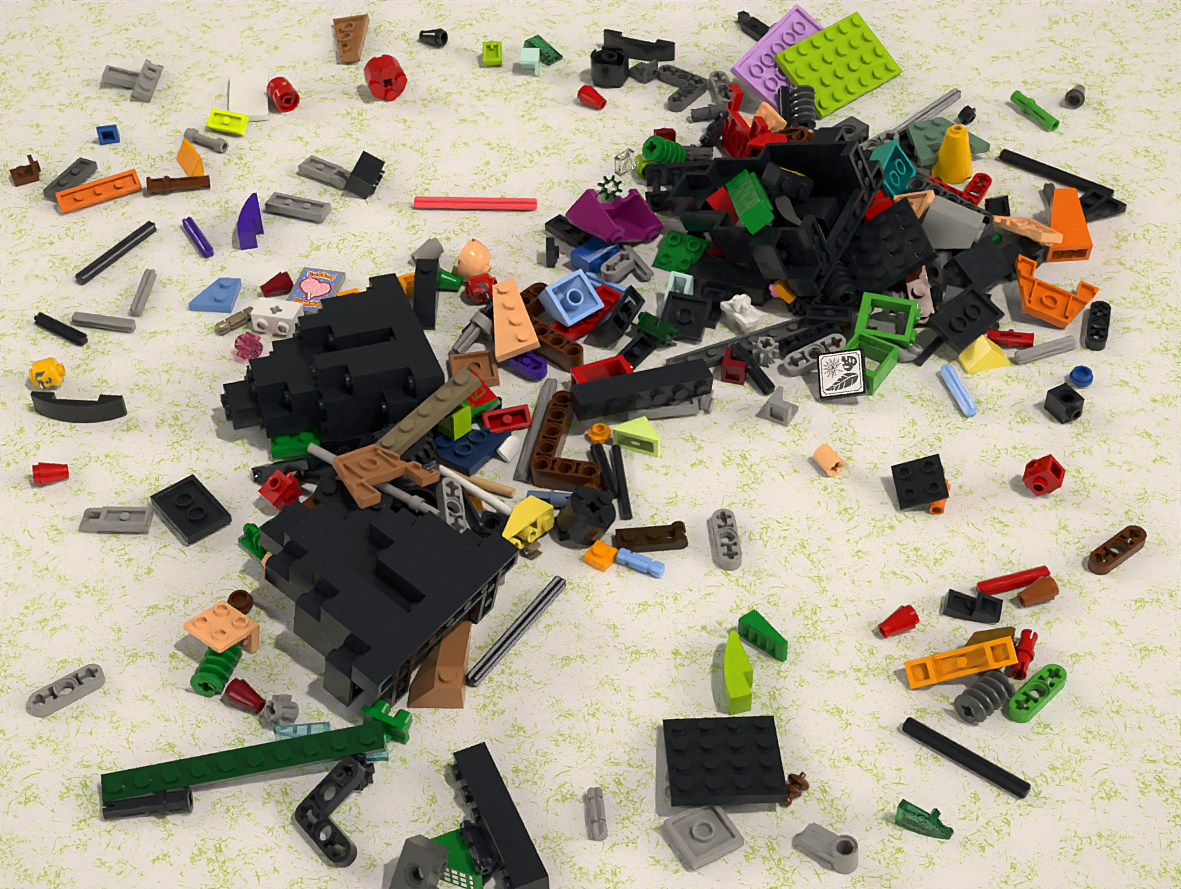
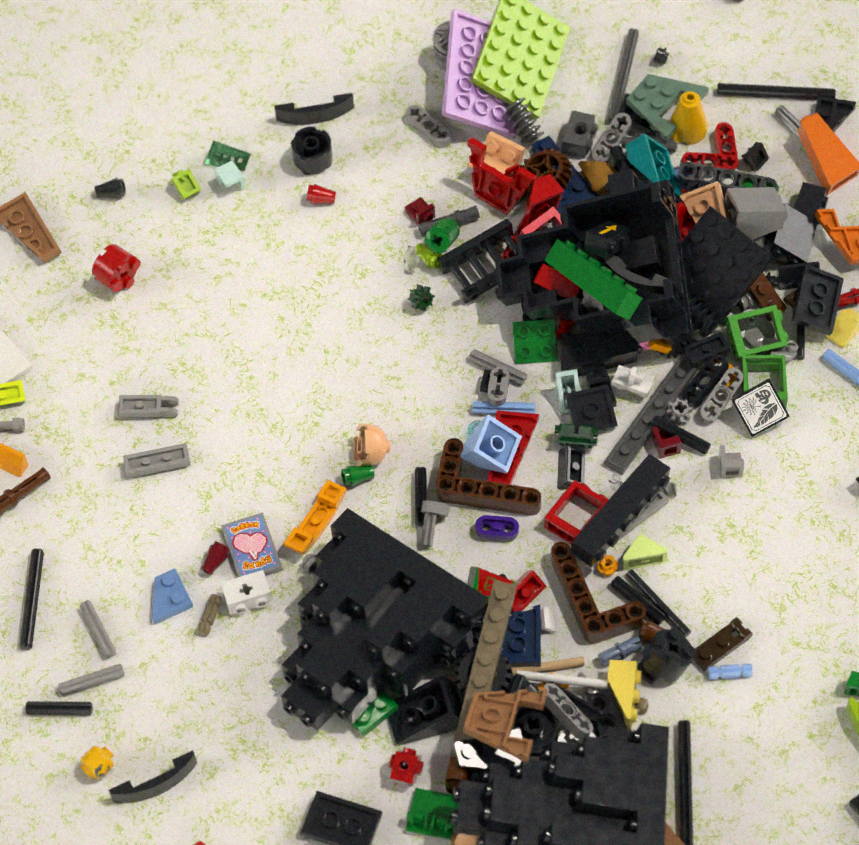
camera: 30 degrees left, 15 degrees up
(197, 237) = (92, 541): dark purple axle -> none
(248, 346) = (249, 637): clear pink gear -> none
(249, 223) = (131, 502): dark purple slope -> none
(283, 94) = (29, 335): red wheel -> none
(300, 465) = (390, 742): black hinge -> none
(365, 173) = (192, 394): black brick -> none
(414, 502) = (538, 723): light grey bar -> none
(426, 292) = (360, 497): black slope -> none
(429, 250) = (317, 449): light grey cone -> none
(475, 203) = (312, 373): coral axle -> none
(480, 288) = (398, 468): red head -> none
(481, 362) = (456, 554): medium nougat tile -> none
(511, 322) = (465, 499): light nougat wing -> none
(548, 390) = (554, 588): light grey axle -> none
(552, 252) = (425, 397): black plate -> none
(561, 228) = (424, 365): black hinge -> none
(592, 255) = (464, 380): blue brick -> none
(600, 555) = (695, 681): light orange plate -> none
(615, 222) = (464, 337): magenta windscreen -> none
(618, 317) = (539, 442): black slope -> none
(644, 72) = (343, 138): dark grey bracket -> none
(692, 85) = (396, 138): dark grey beam -> none
(707, 112) = (439, 159): dark grey pin -> none
(714, 130) = (461, 182): black plate -> none
(724, 547) = (778, 623): light grey beam -> none
(752, 25) = (403, 32): black hinge -> none
(784, 104) = (506, 127): black axle -> none
(828, 460) = (801, 495): light nougat piece -> none
(1028, 106) = (705, 20): bright green pin -> none
(1029, 228) = (802, 172): light nougat wing -> none

